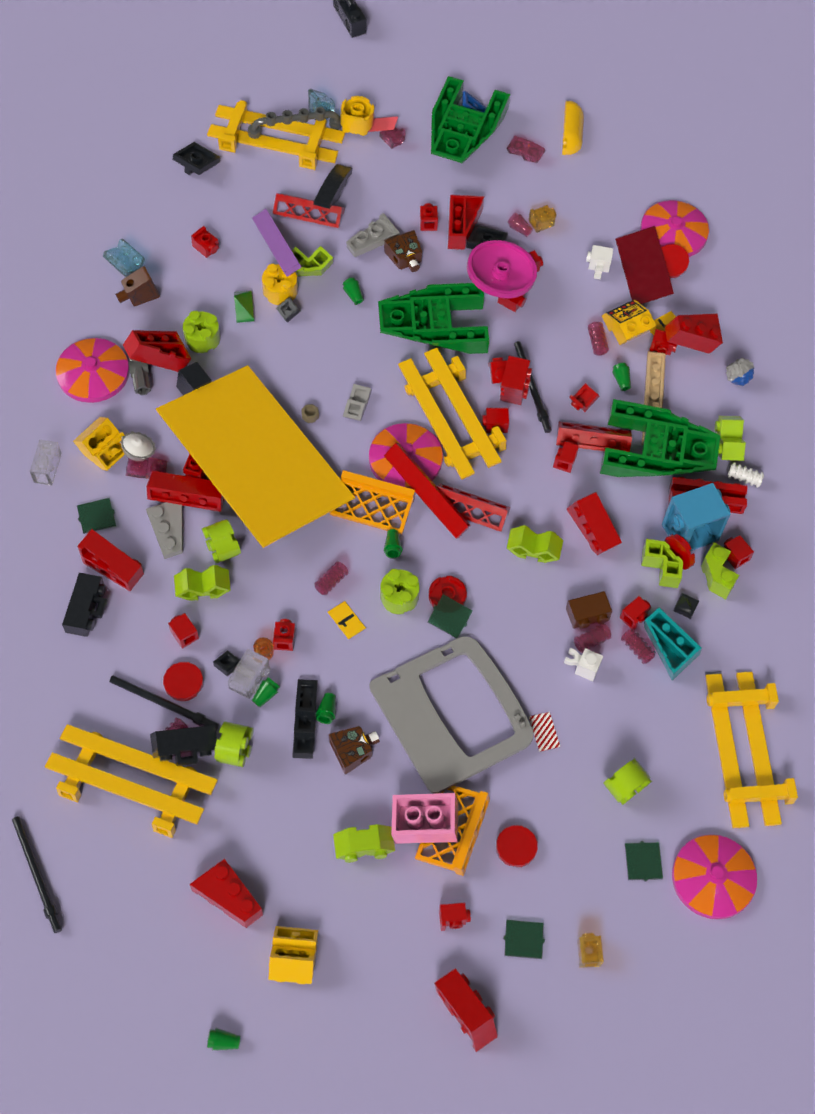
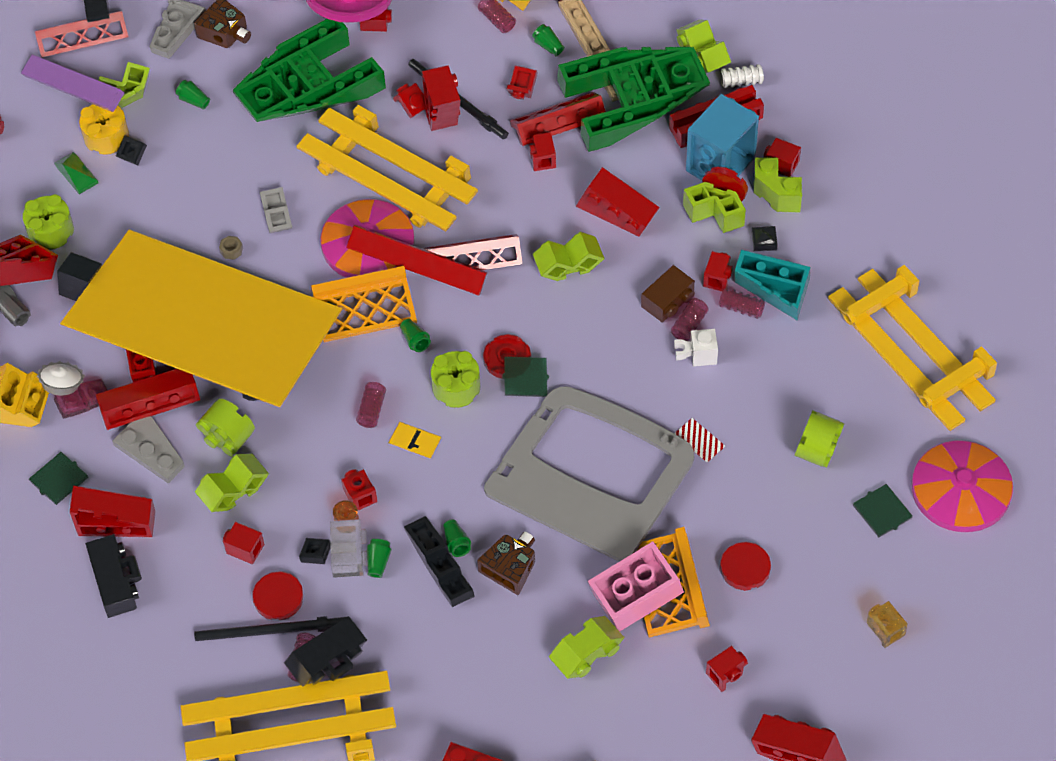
camera: 25 degrees left, 5 degrees down
(233, 744) = (382, 624): lime brick -> none
(496, 417) = (441, 148): red brick -> none
(524, 939) = (811, 652): clear green piece -> none

